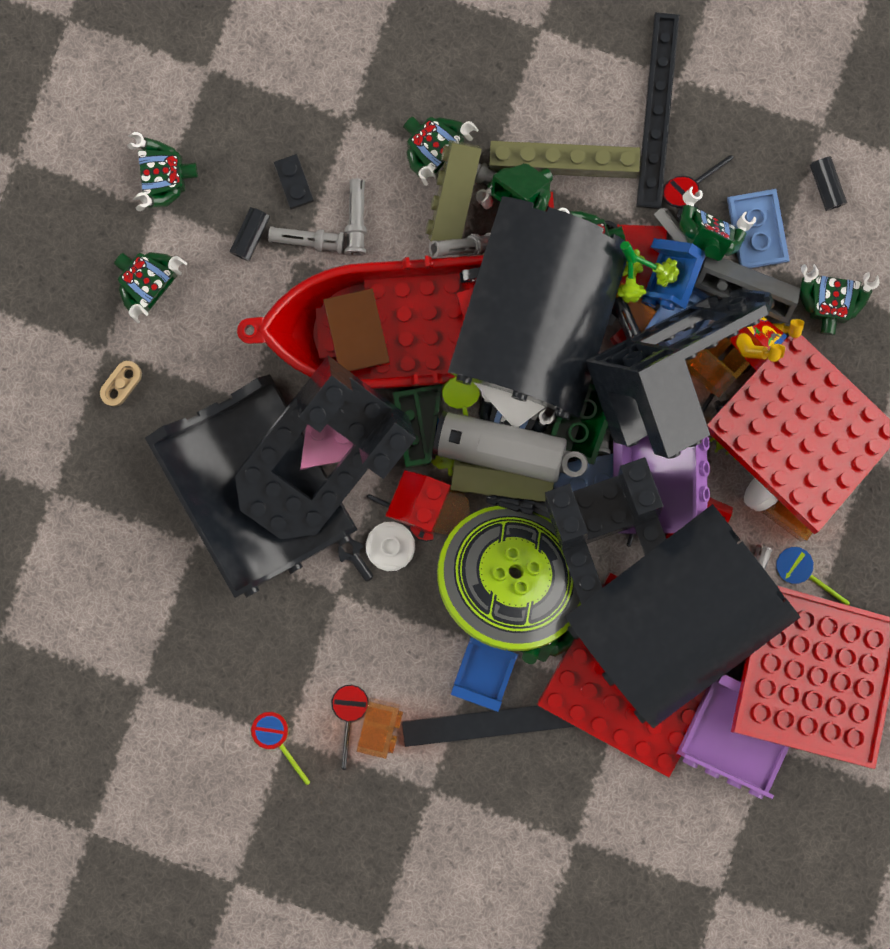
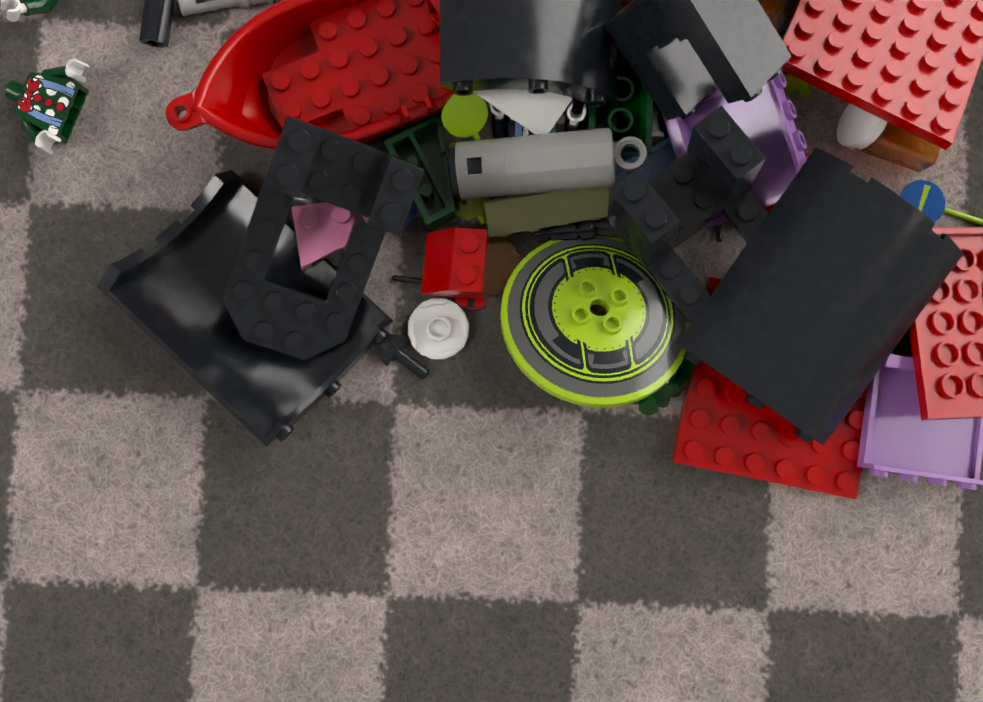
camera: 10 degrees left, 0 degrees up
(119, 382) = (55, 235): tan plate -> none
(271, 731) = (365, 593): piece -> none
(349, 705) = (449, 532): piece -> none
(356, 330) = (316, 80): reddish brown tile -> none
(378, 728) = (491, 550): clear orange piece -> none
(480, 725) = (612, 507): black tile -> none
(484, 674) = (597, 445): blue panel -> none

